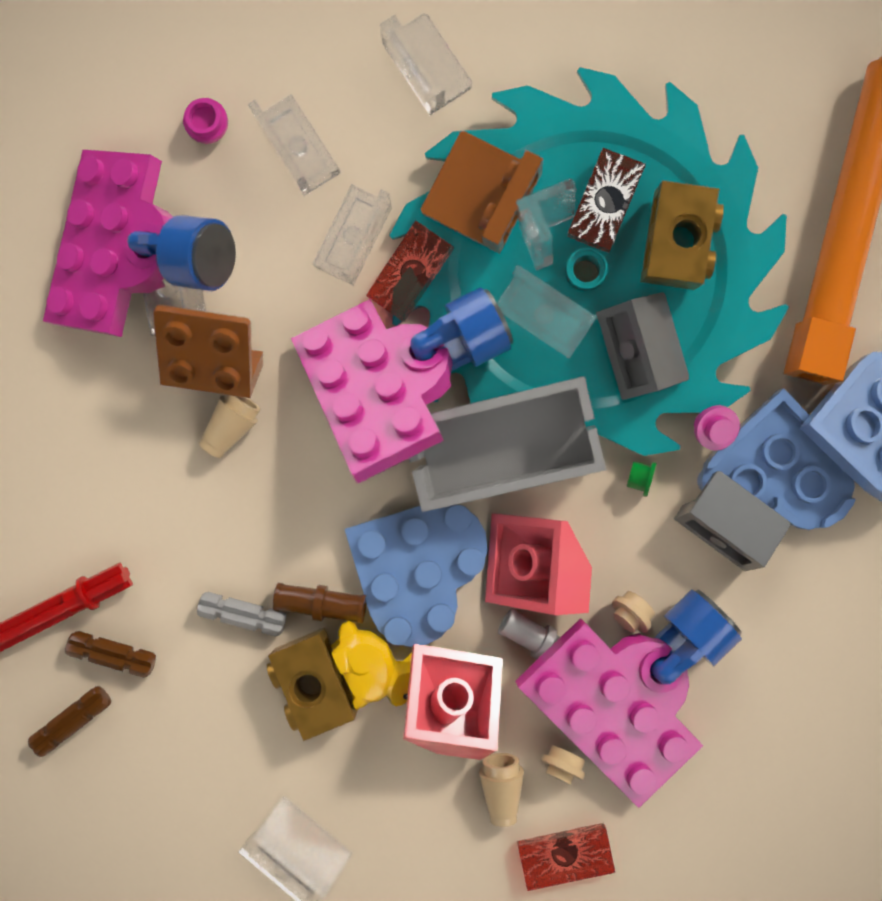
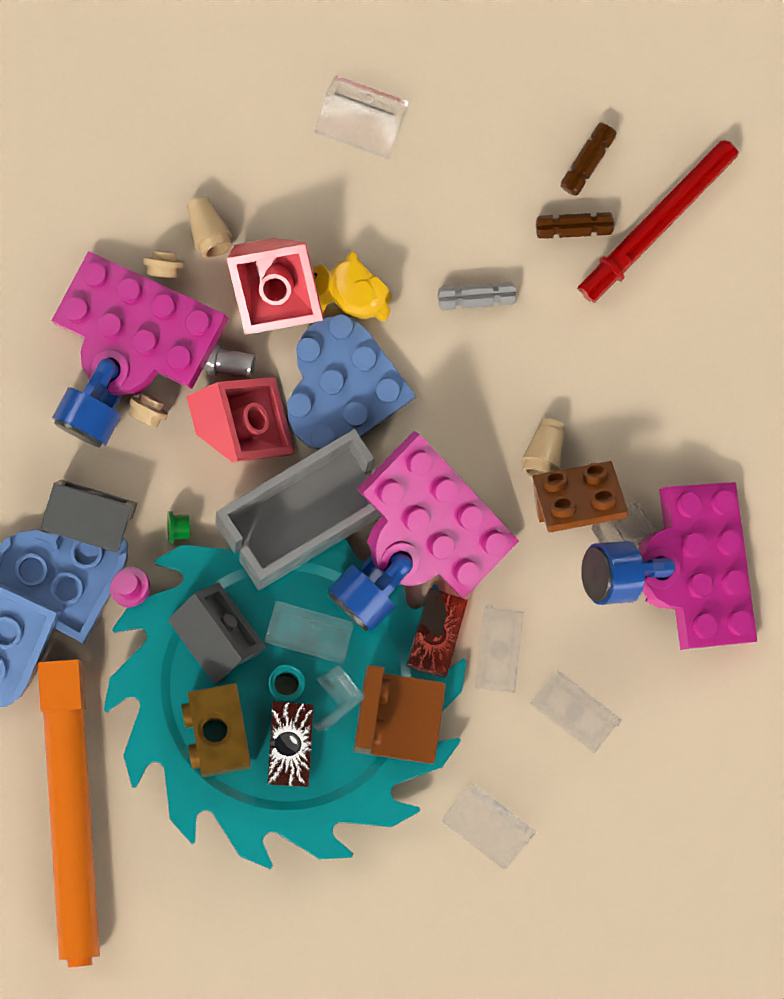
camera: 160 degrees right, 5 degrees down
(205, 120) = (661, 704): dark pink plate -> none
(304, 711) = (403, 281): pearl gold brick -> none
(319, 602) = (414, 327): reddish brown pin -> none
(566, 856) = (134, 190): clear red tile -> none

